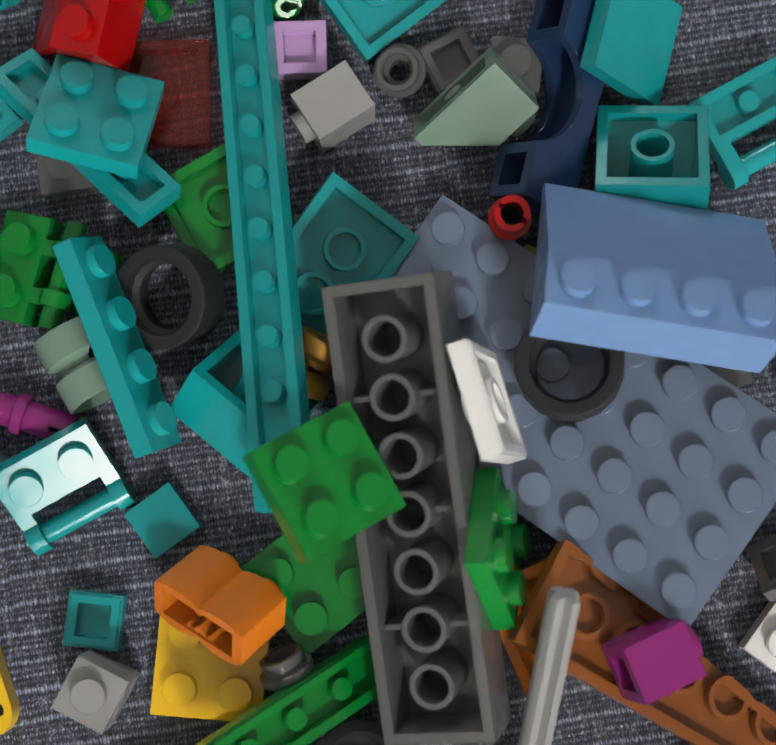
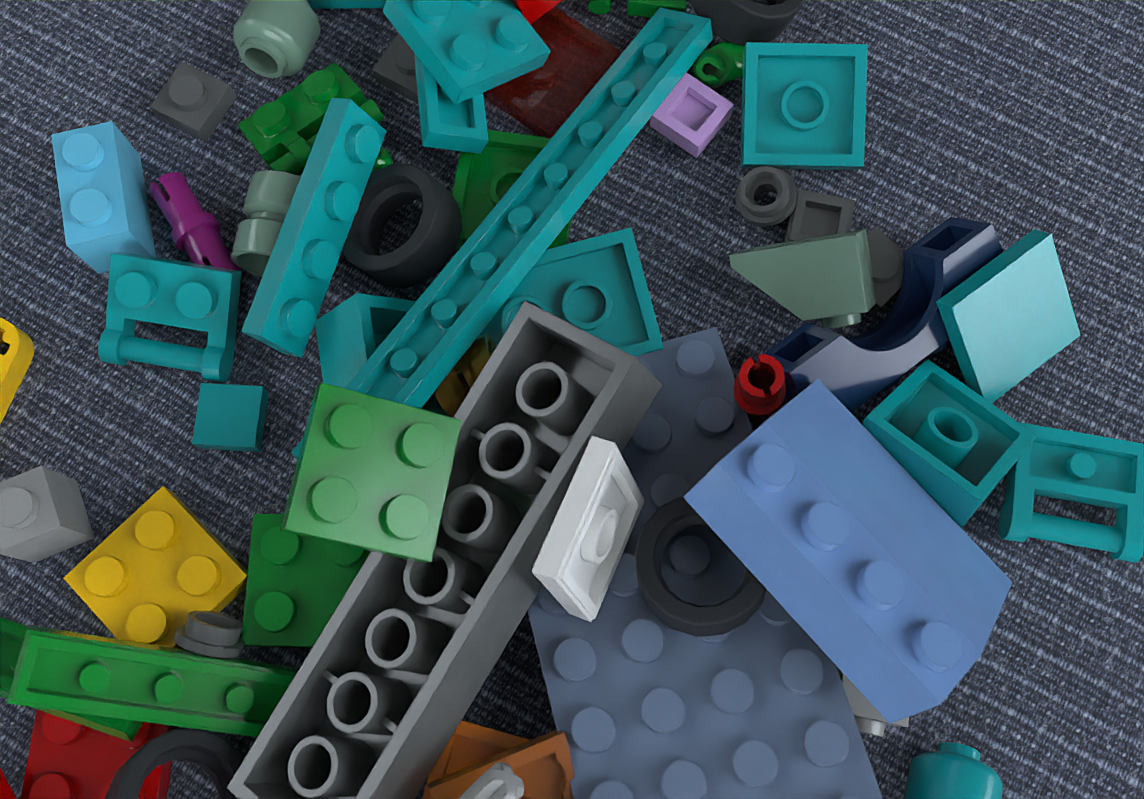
camera: 45 degrees right, 10 degrees down
(95, 620) = (97, 456): teal tile -> none
(220, 604) = (204, 526): orange brick -> none
(331, 107) = (678, 180): light grey brick -> none
(496, 549) = (486, 684): green plate -> none

